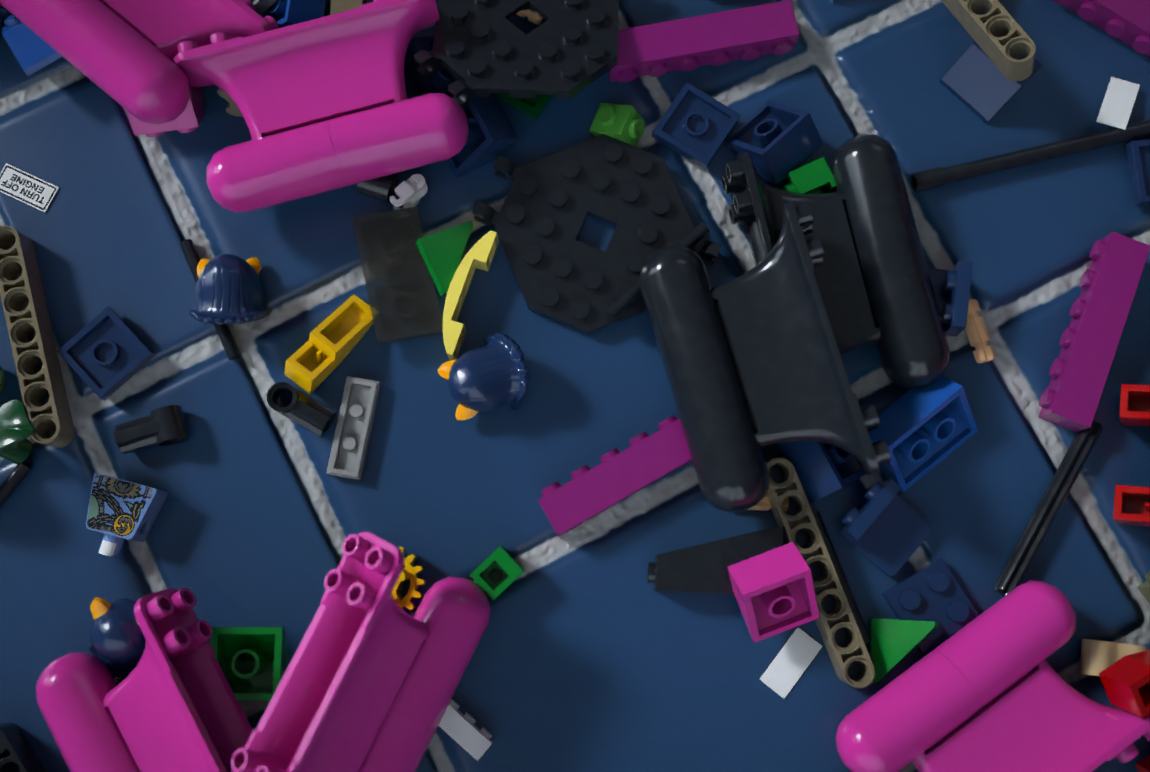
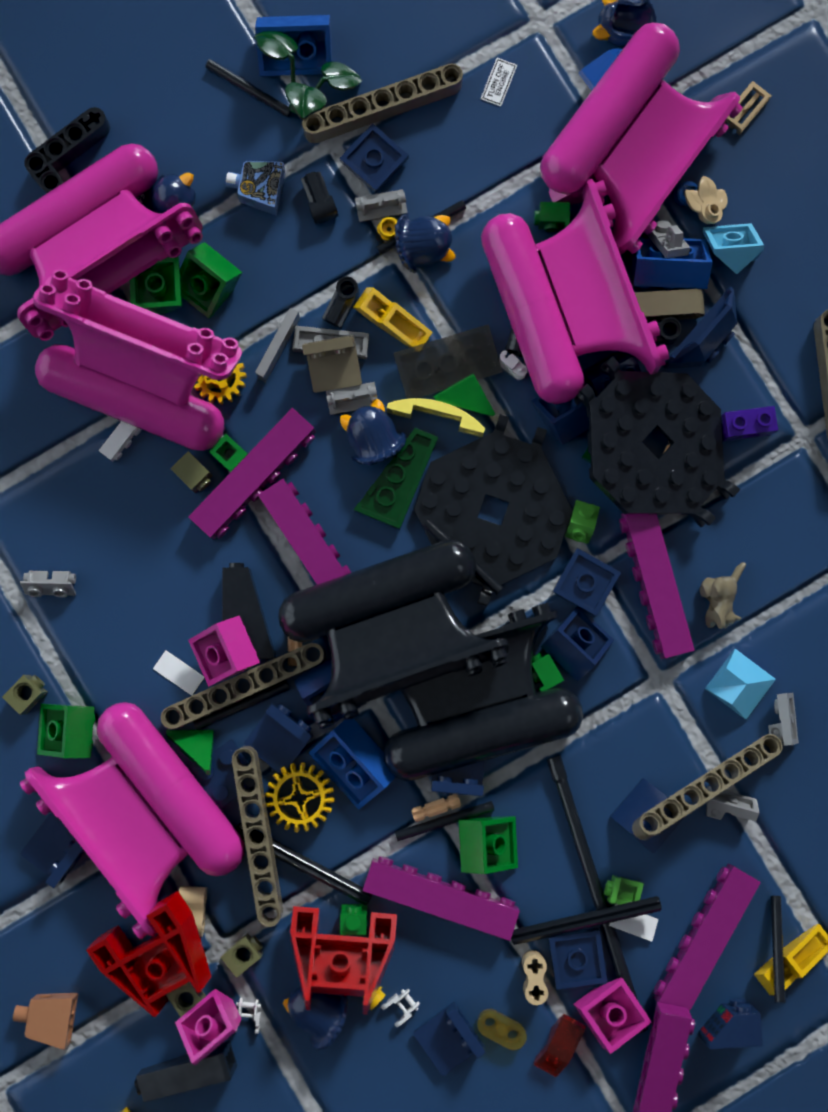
camera: 85 degrees right, 5 degrees up
(173, 348) = (381, 205): none -> light grey hinge
(198, 340) = (383, 225): none -> yellow plate
(217, 126) = (552, 216): none -> green brick
(247, 590) = (207, 279): none -> green slope
(350, 498) = (277, 345): none -> light grey tile
(384, 423) = (333, 363): none -> dark tan bracket
(432, 404) = (351, 398): none -> light grey hinge
(519, 627) = (192, 472): none -> olive brick
(528, 543) = (252, 474): none -> magenta brick
(552, 350) = (396, 486): none -> dark green wing
(968, 517) = (304, 818): none -> yellow gear
(993, 323) = (444, 821): none -> black bar
(1026, 269) = (488, 844): none -> green slope
(1035, 561) = (253, 847): none -> dark tan beam
(1082, 110) = (622, 890): none -> bright green bracket
(1120, 151) = (586, 920): none -> black axle
(1124, 443) = (353, 919): none -> green brick

